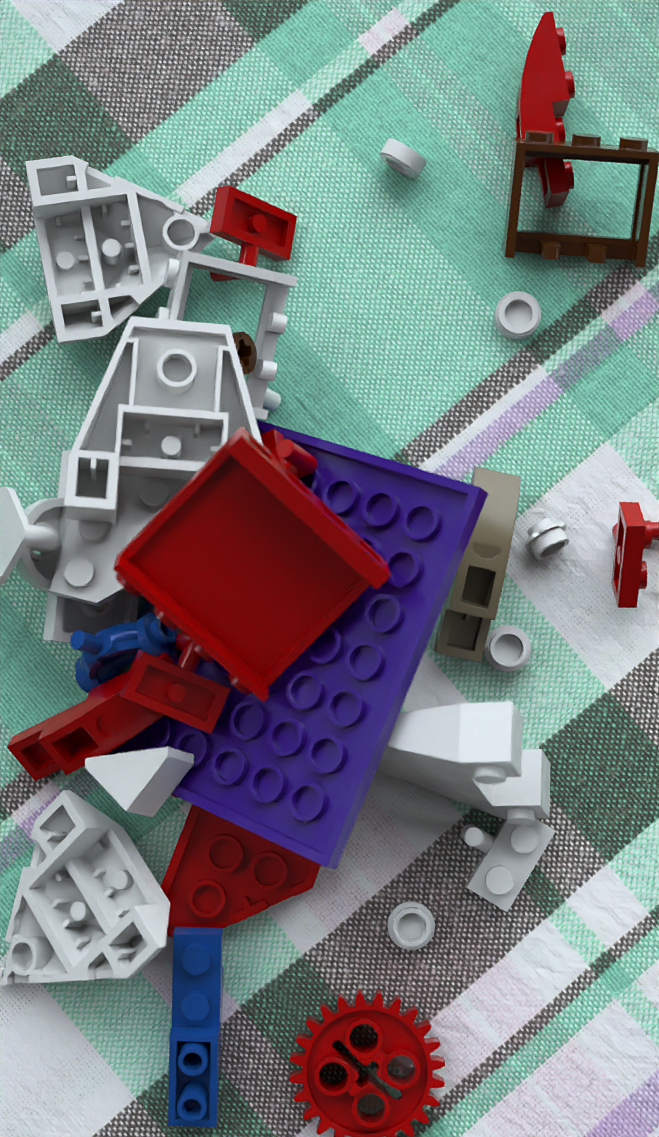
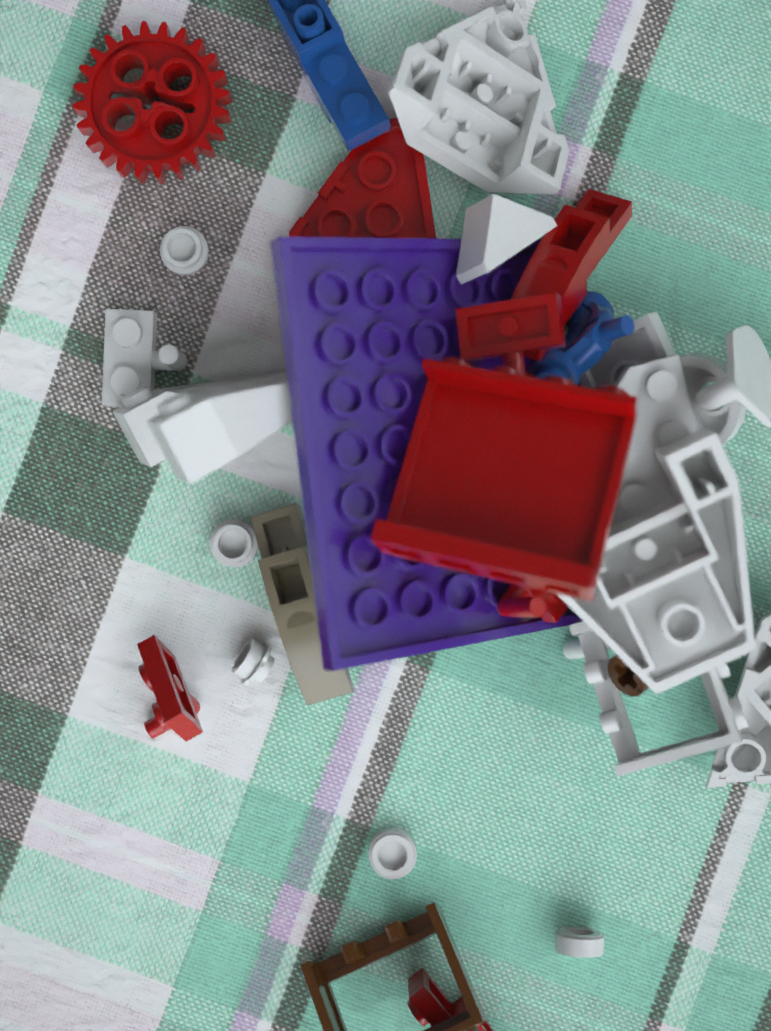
camera: 145 degrees right, 5 degrees up
(253, 226) = (683, 801): red plate -> none

